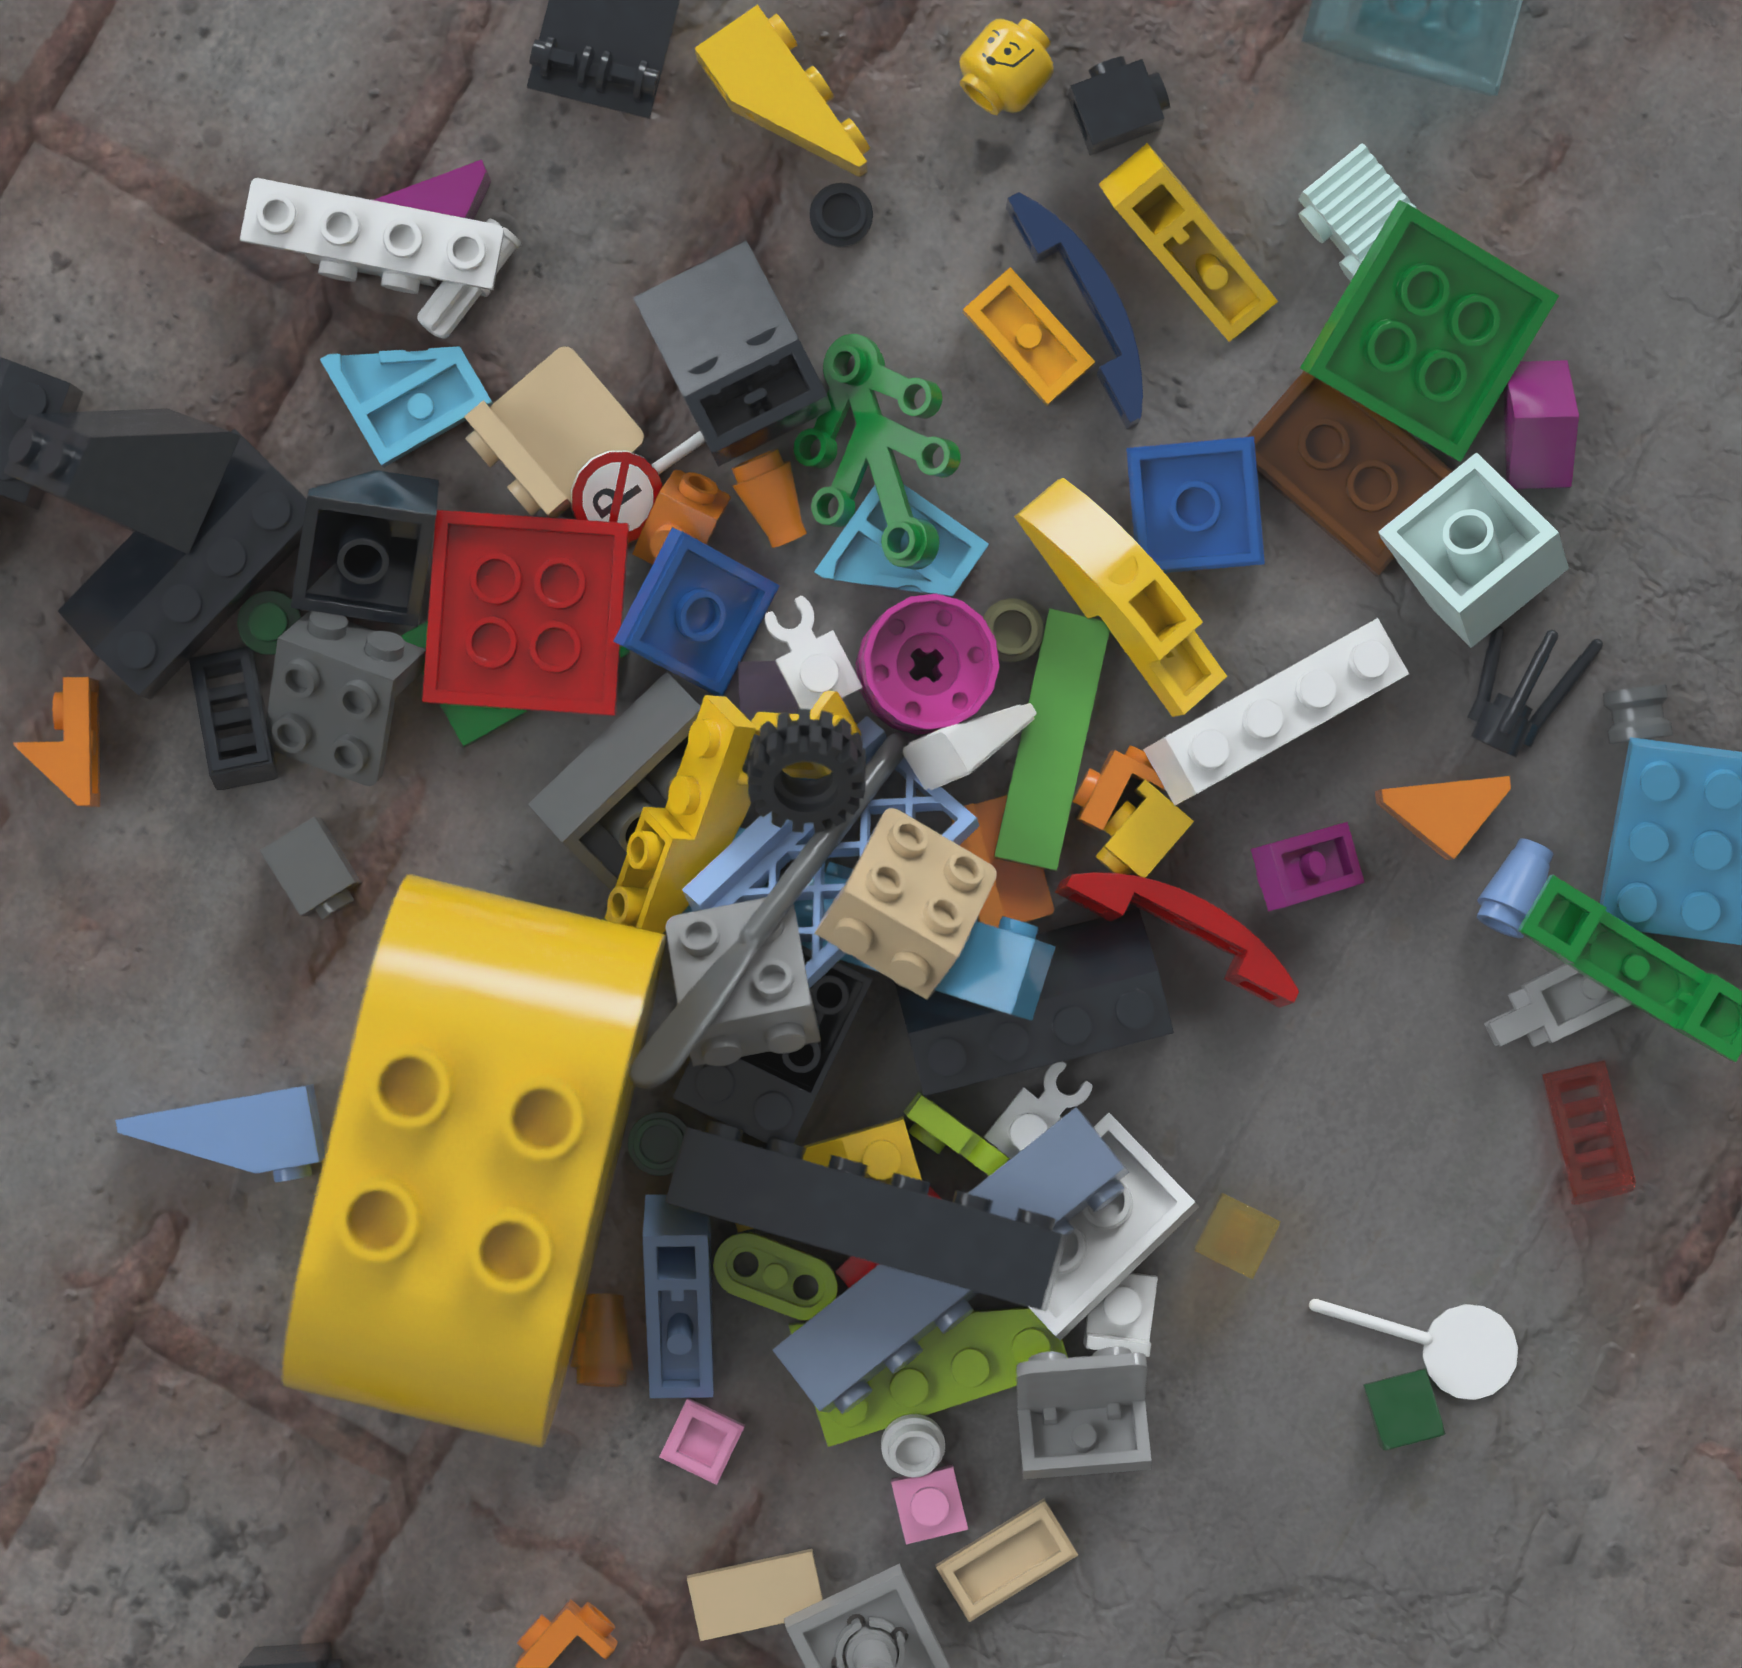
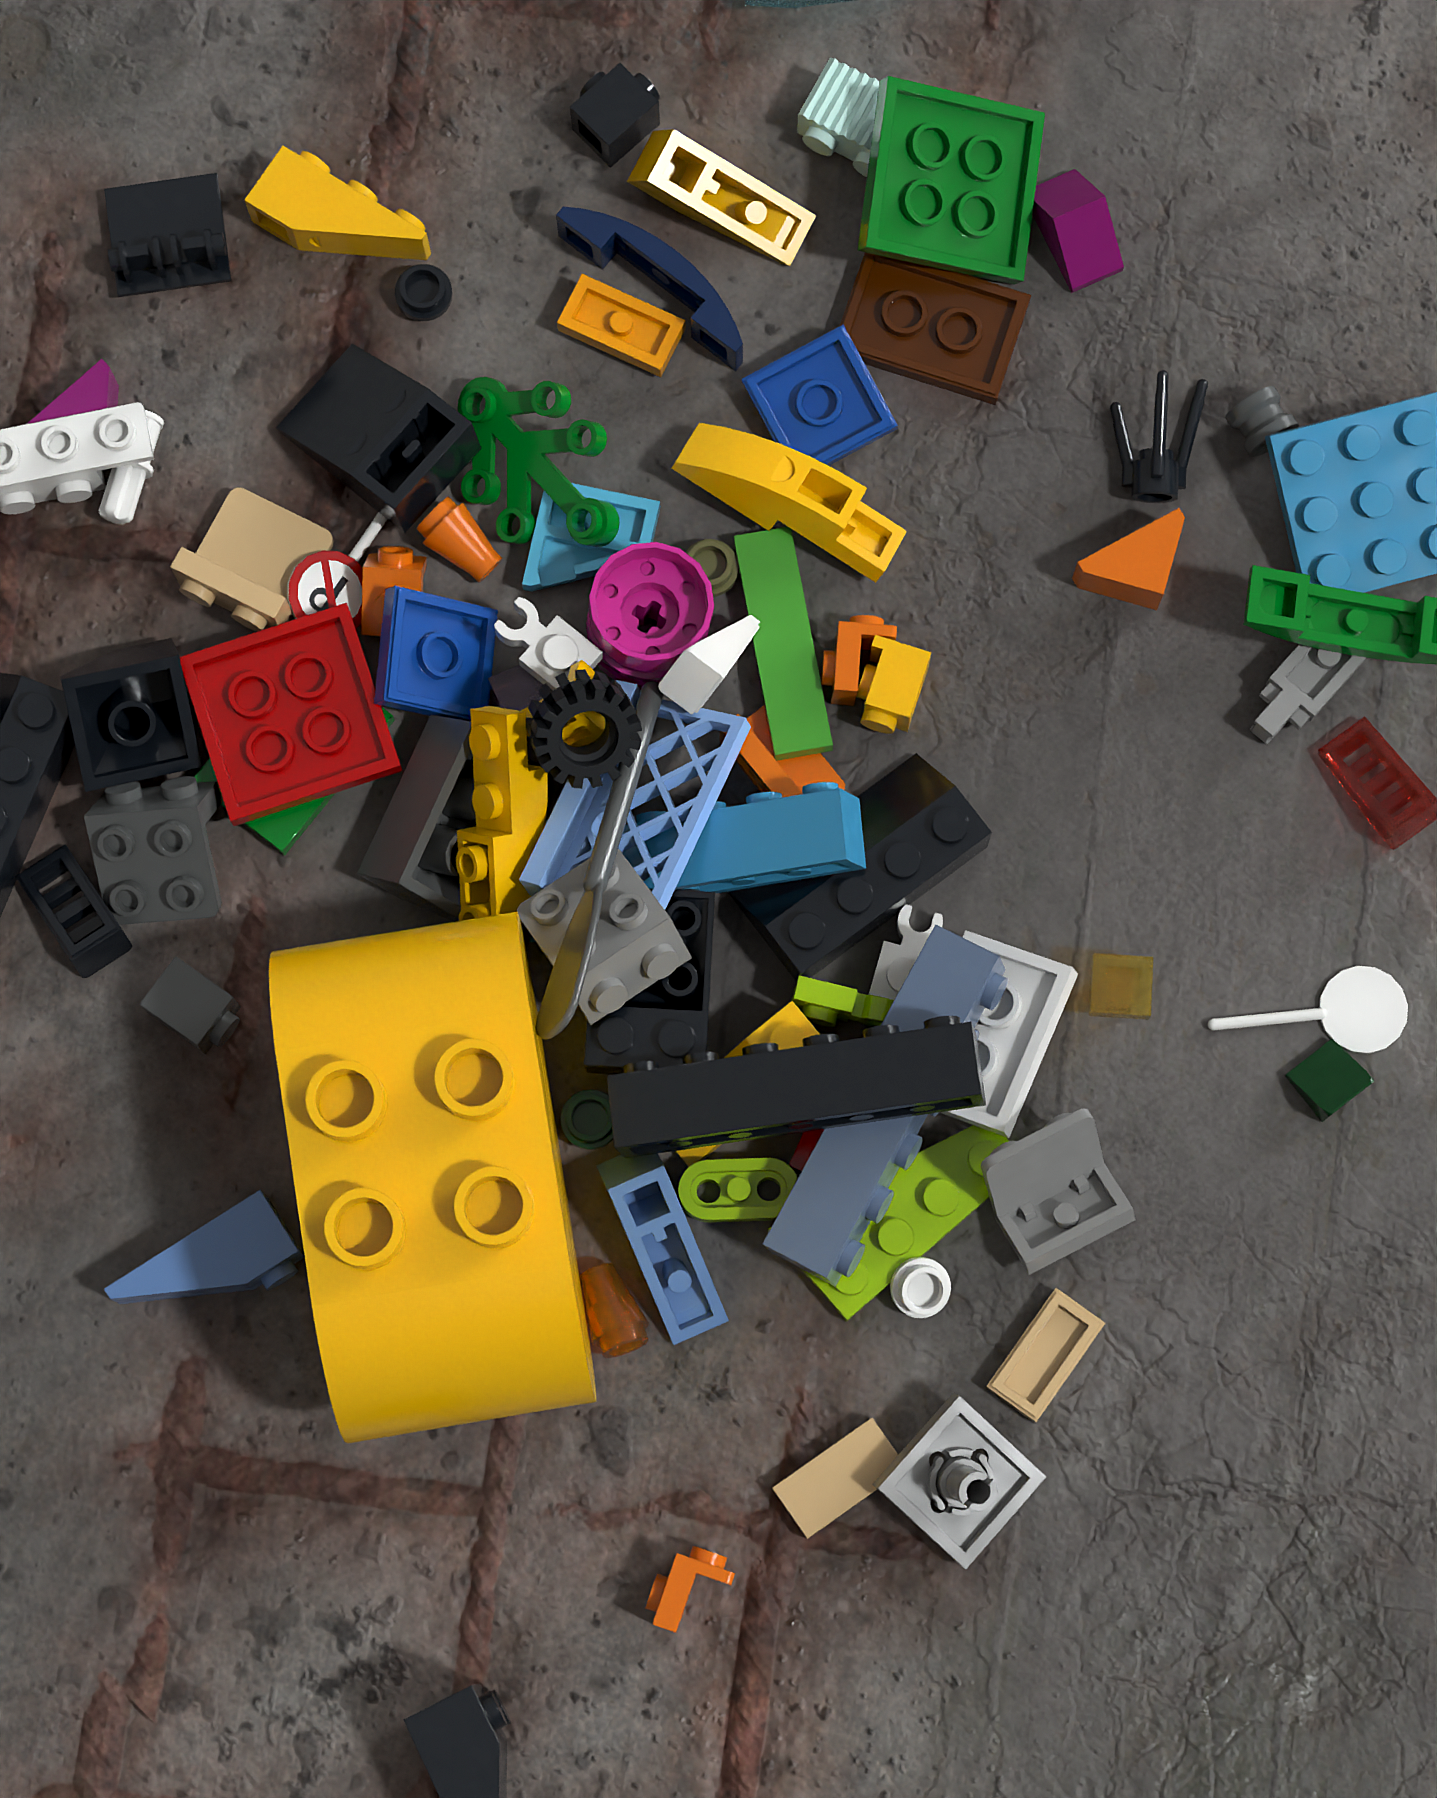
camera: 20 degrees left, 10 degrees down
(265, 619) = (65, 816): dark green plate -> none
(406, 396) = (114, 582): medium azure wing -> none
(702, 1441) = (735, 1363): bright pink tile -> none
(908, 903) = (717, 805): tan bracket -> none
(929, 1505) = (957, 1334): bright pink plate -> none
(1006, 66) = (510, 117): yellow head -> none
(1124, 1316) = (1051, 1093): white bracket -> none
(1253, 964) = (1036, 756): red slope -> none
(1276, 711) = (959, 534): white brick -> none
(1307, 866) = (1040, 658): magenta slope -> none
(1475, 549) = (1068, 342): light aqua slope -> none
(1515, 887) = (1224, 606): medium blue cone -> none

